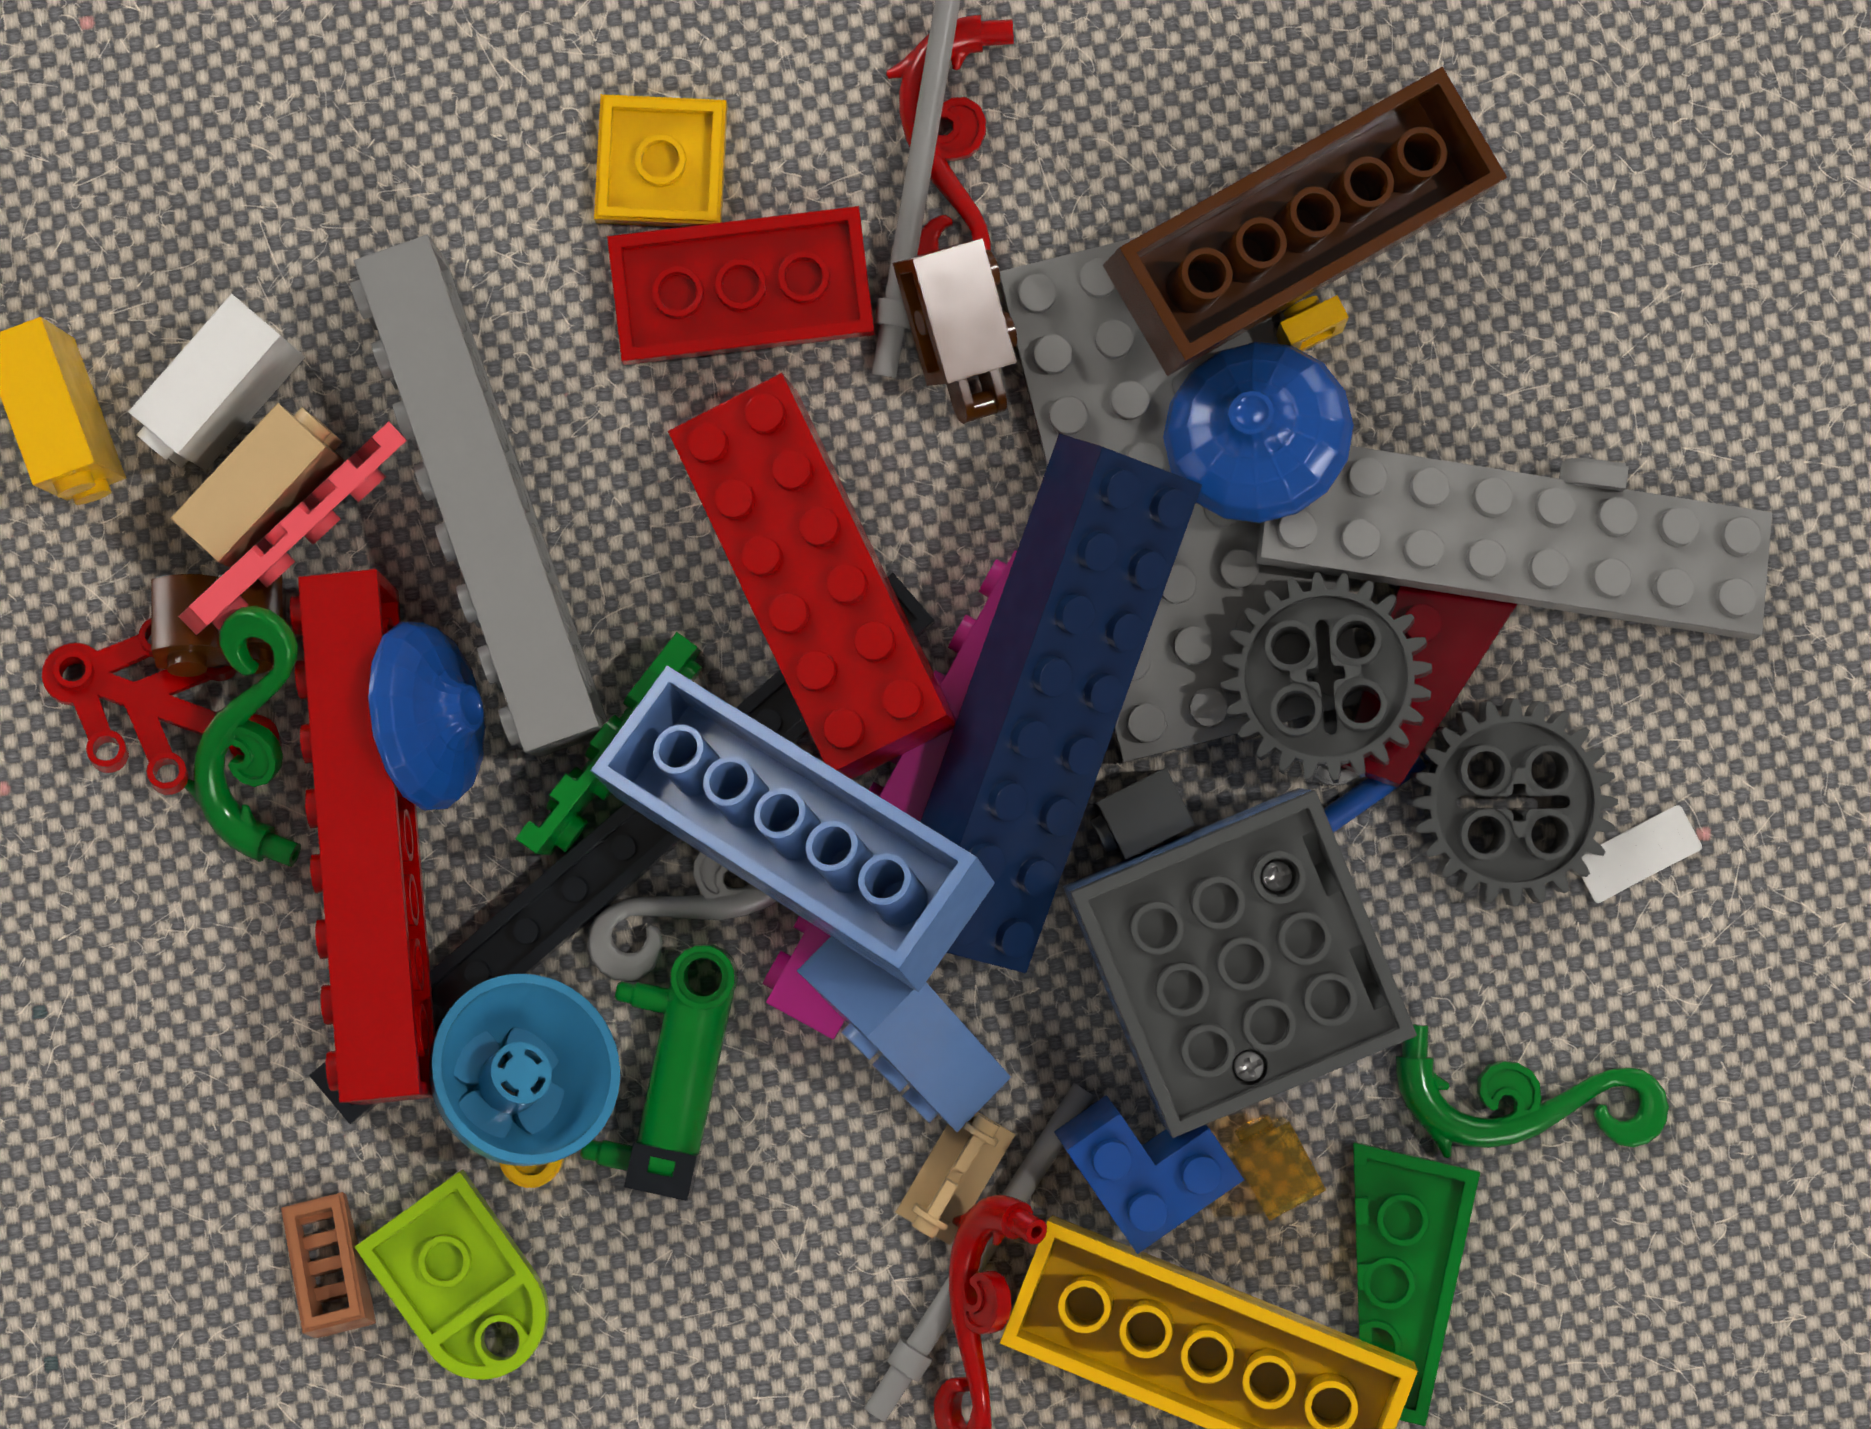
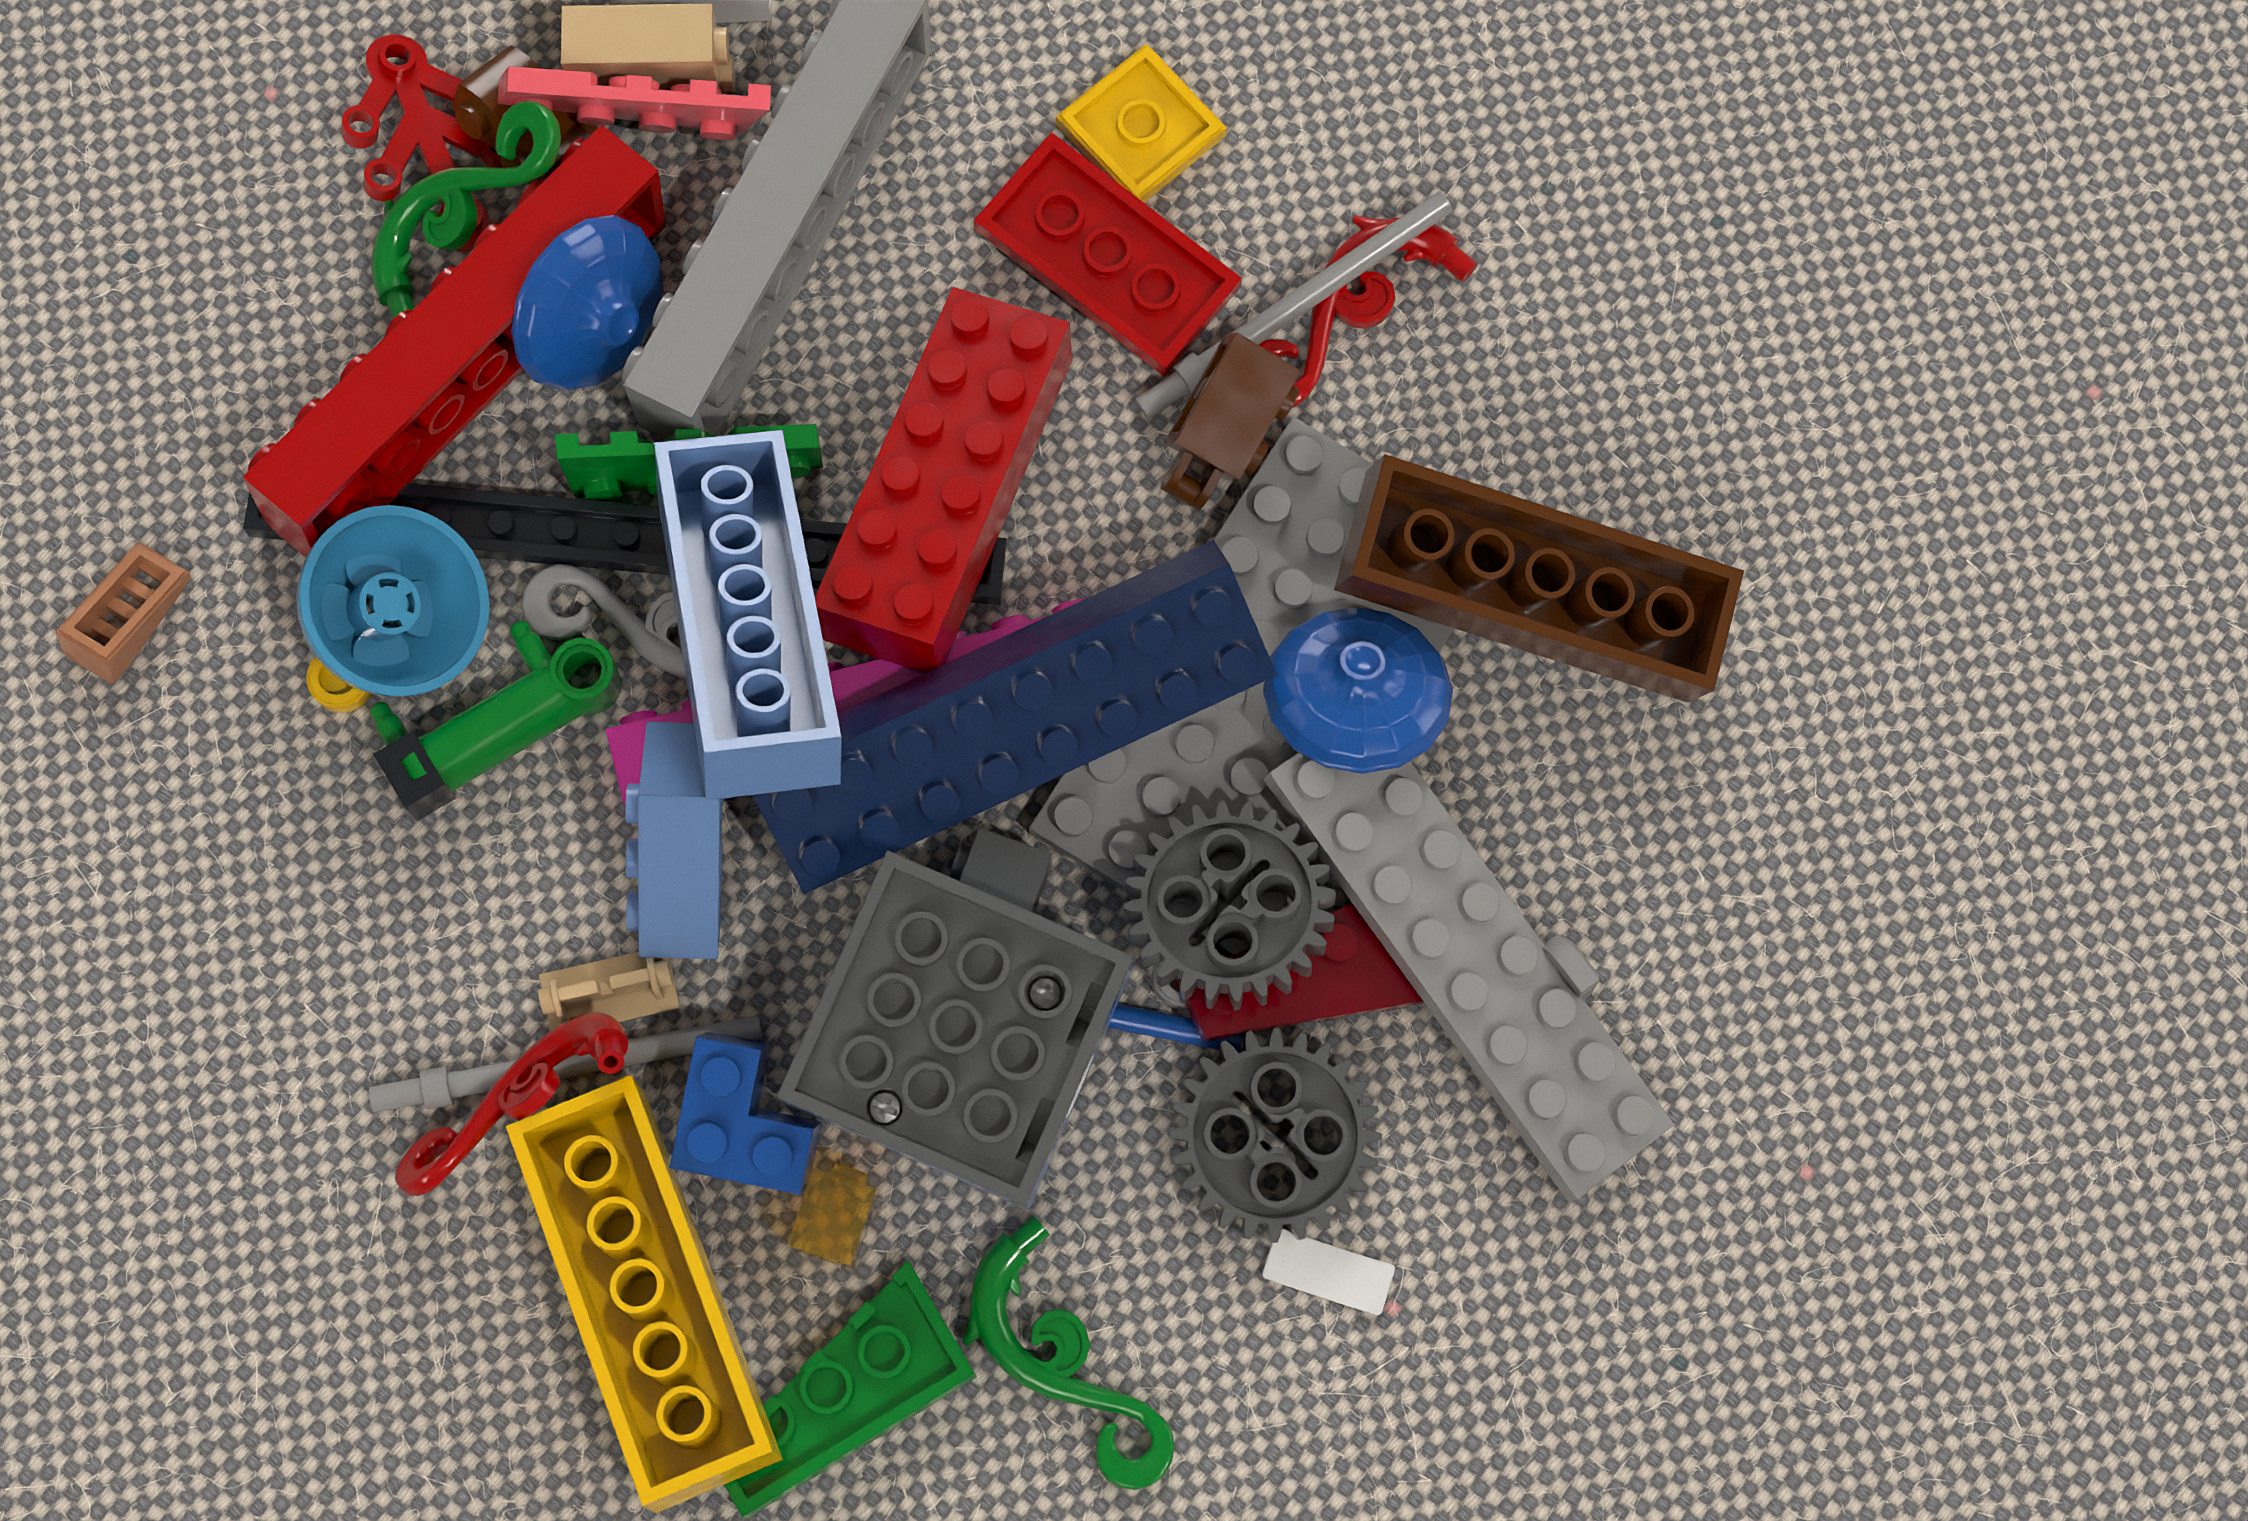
camera: 40 degrees right, 10 degrees down
(454, 1275) = (200, 704): lime plate -> none
(1312, 322) = (1475, 663): yellow plate -> none

